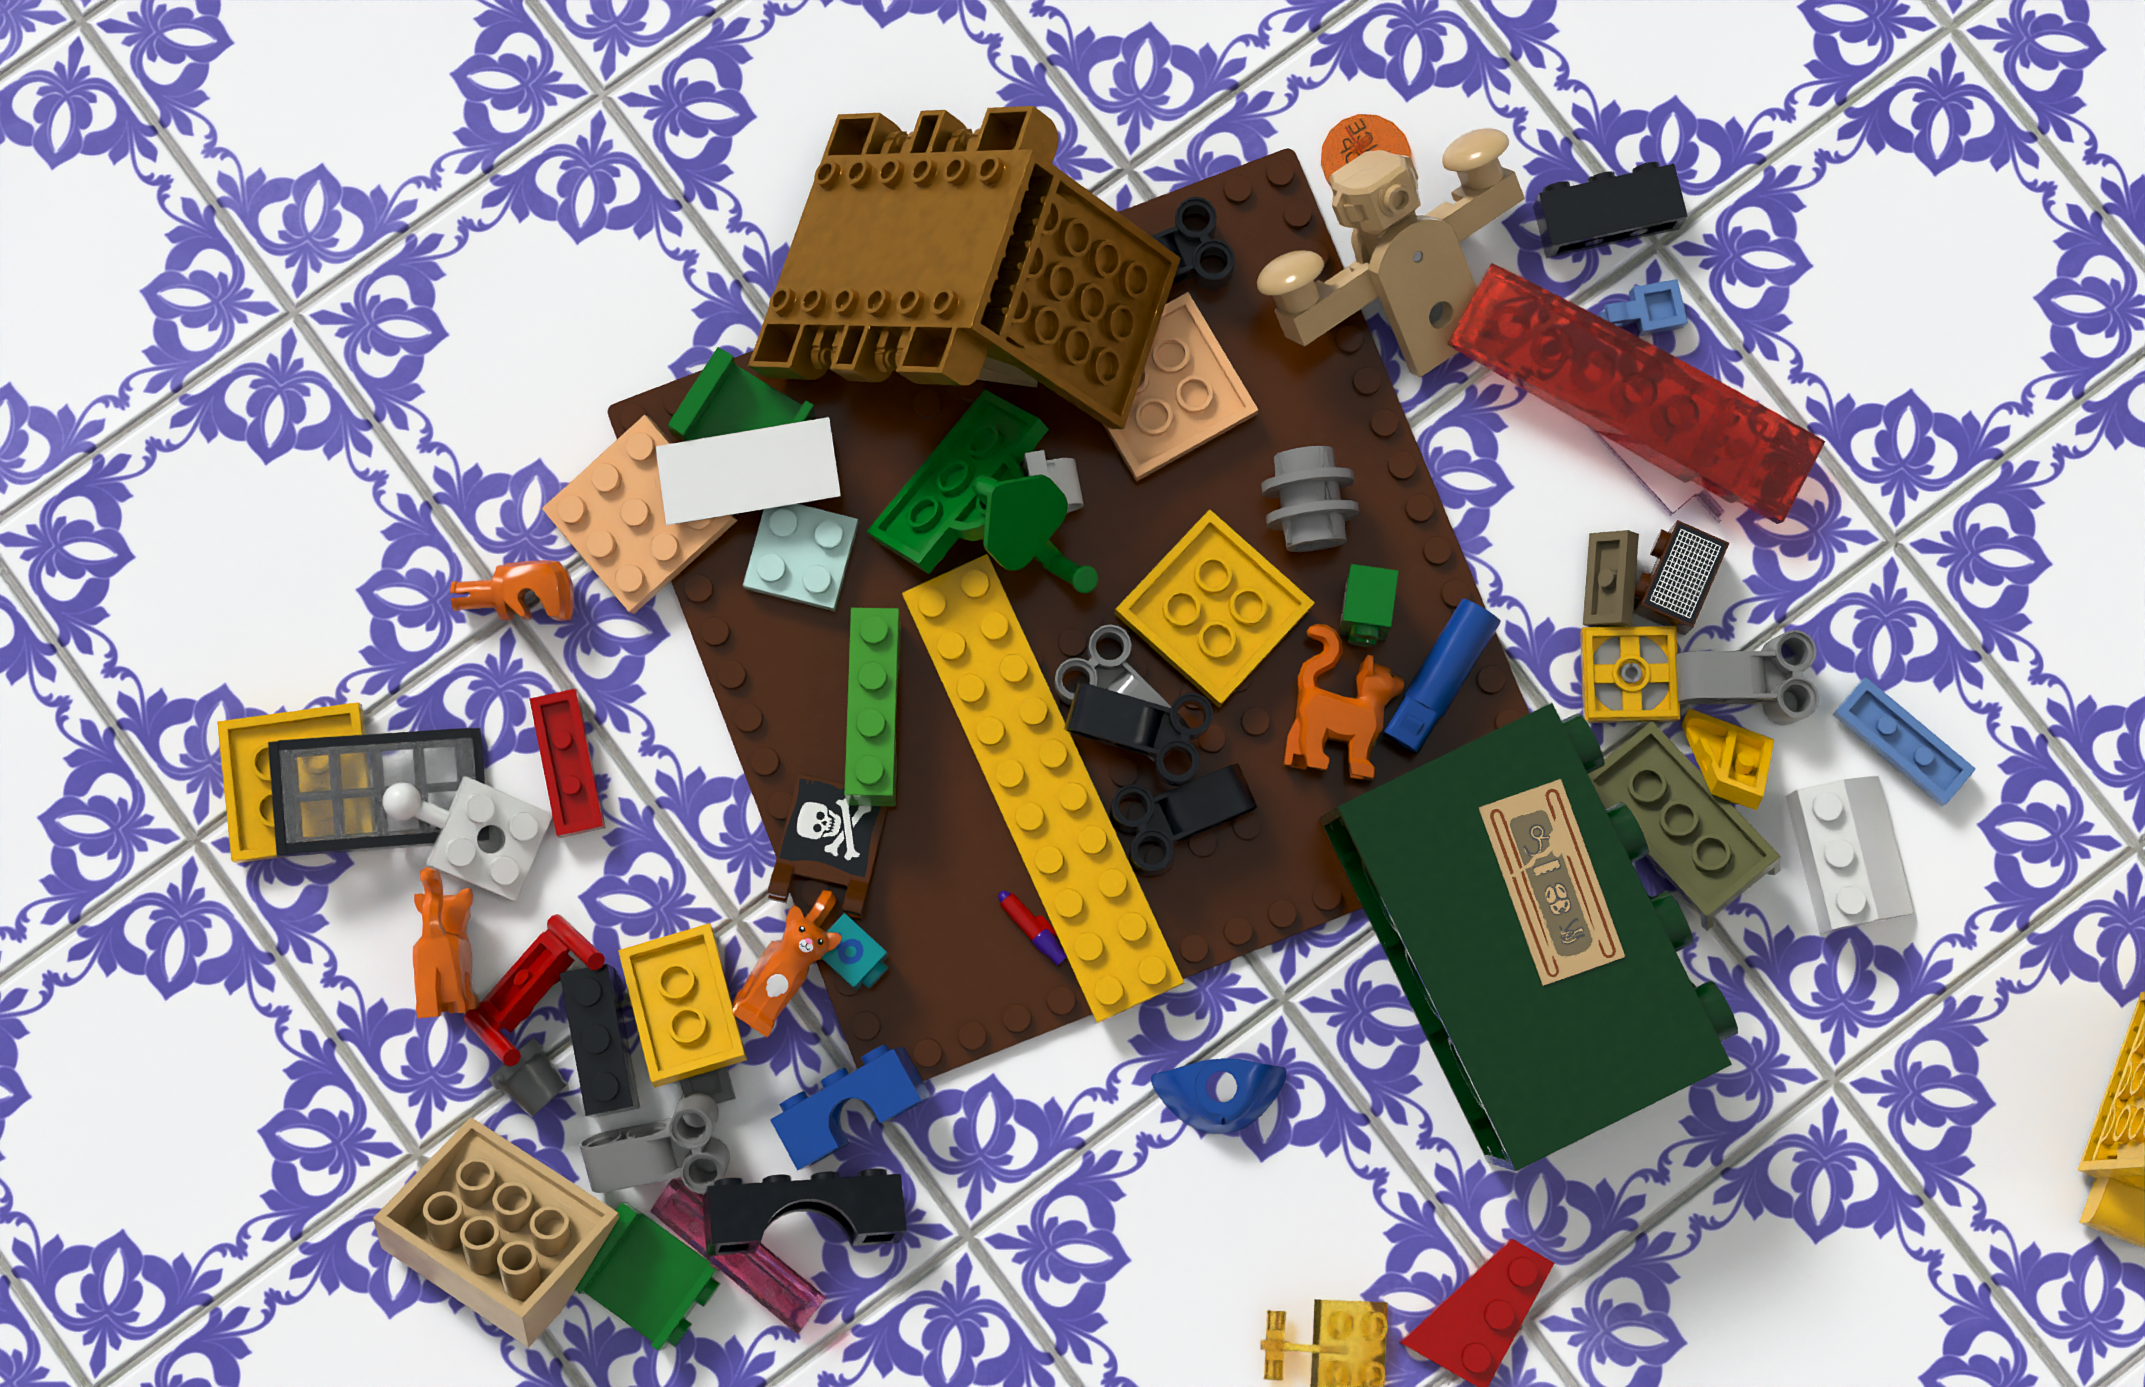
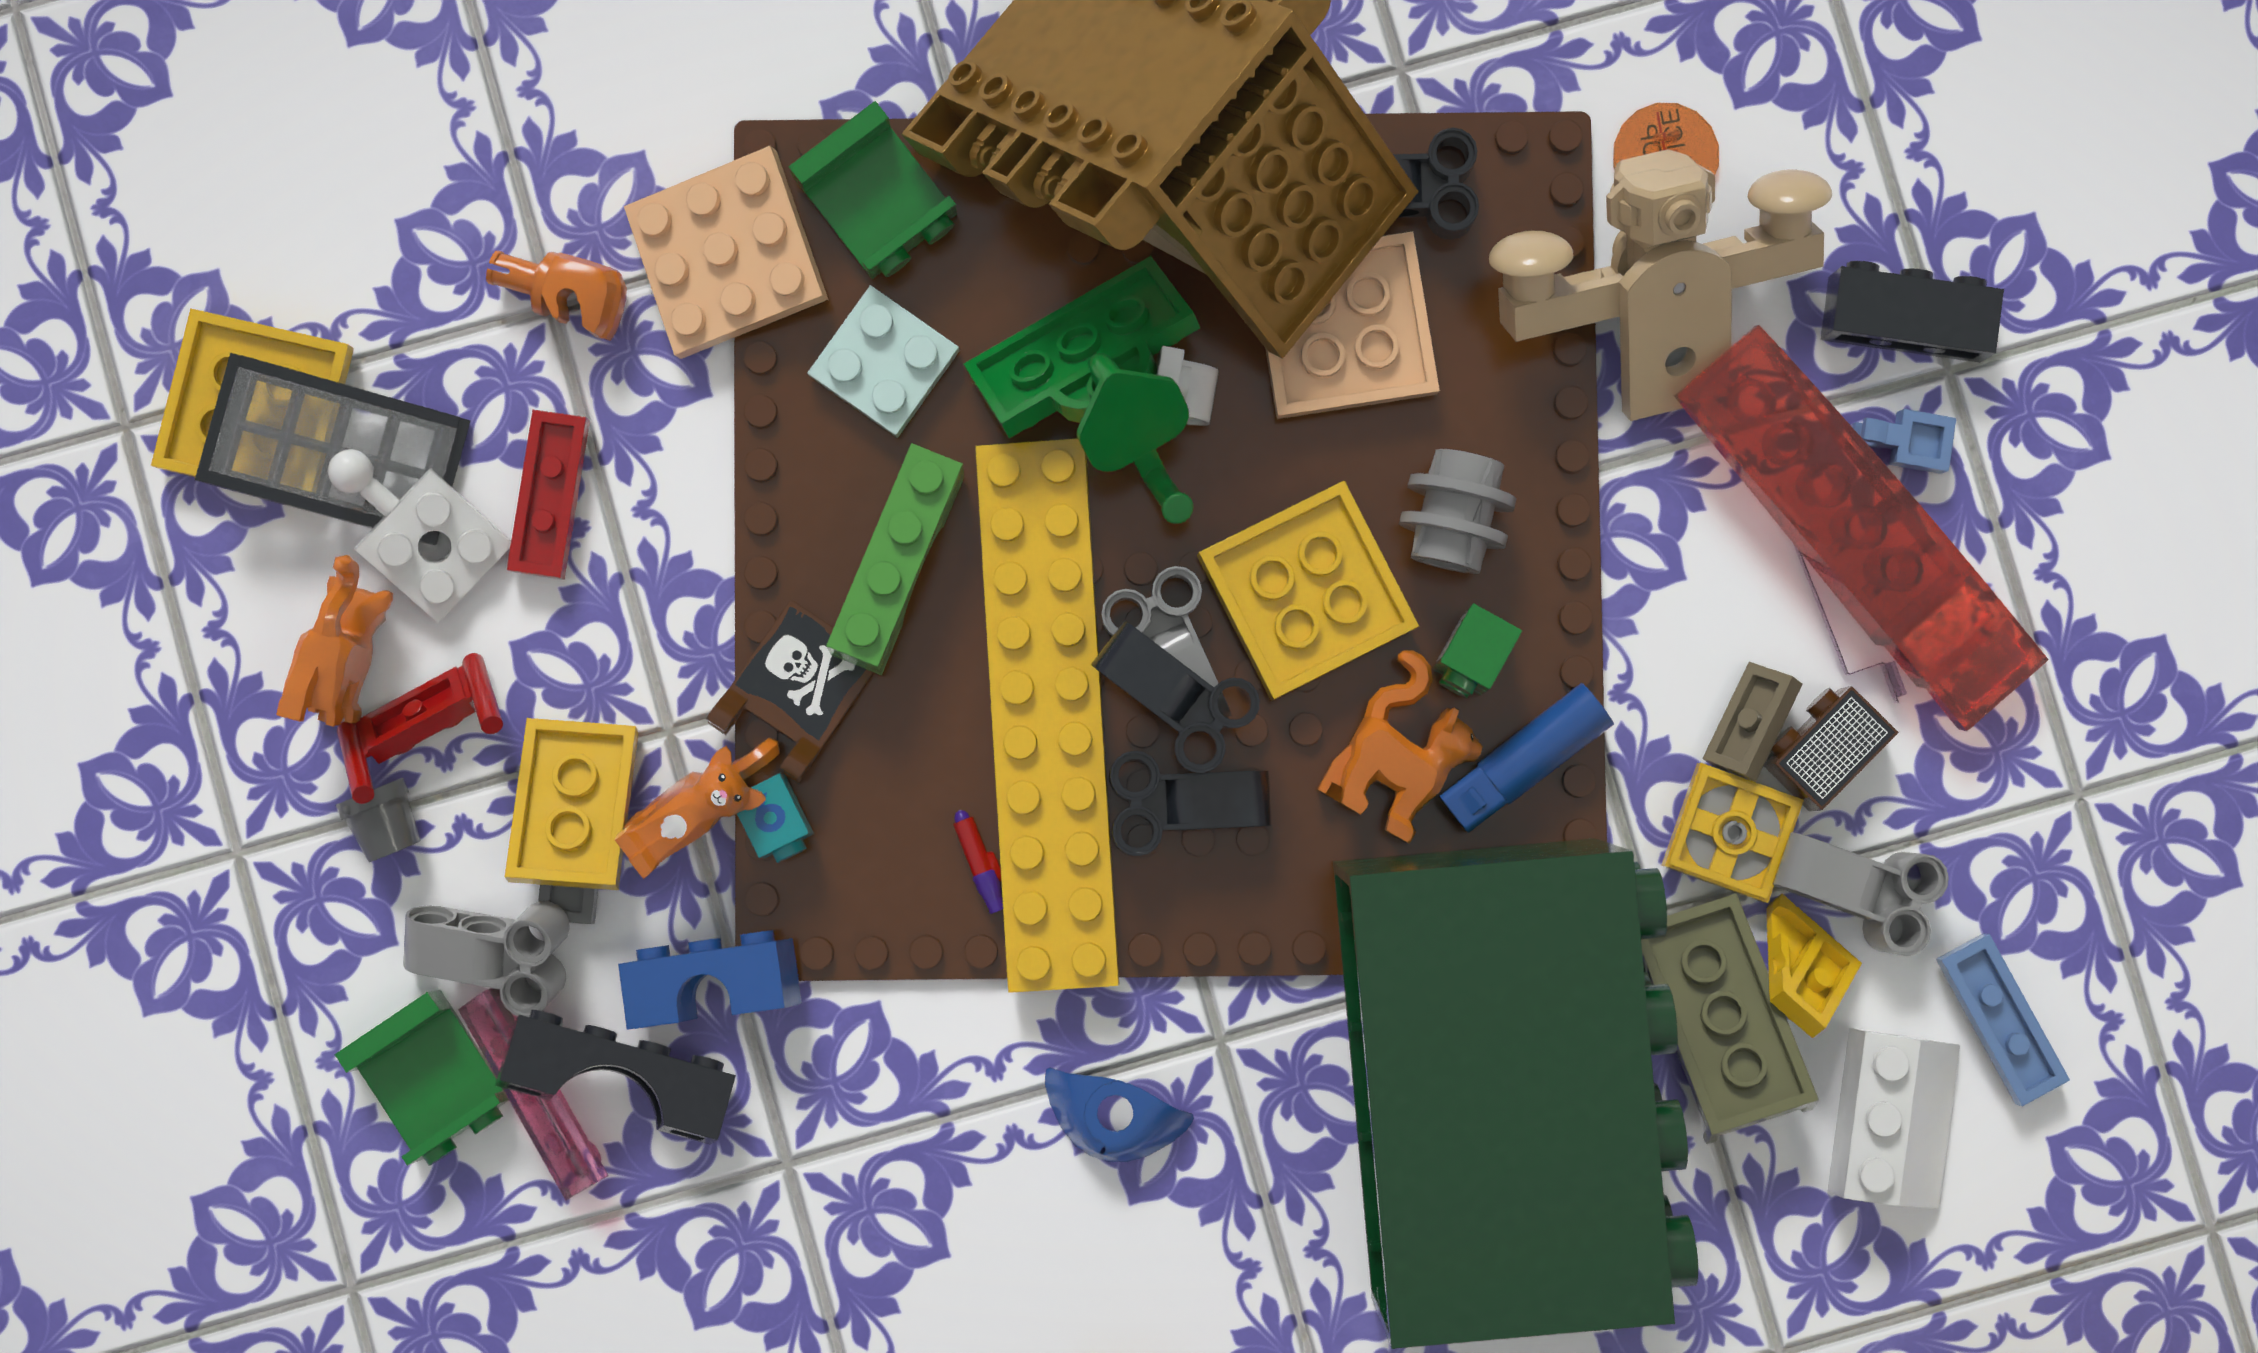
camera: 20 degrees right, 5 degrees up
(496, 1230) = (284, 970): tan slope -> none
(600, 1041) = (470, 809): black brick -> none
(747, 471) = (856, 250): white sticker -> none
(1551, 882) = (1554, 1048): sticker -> none

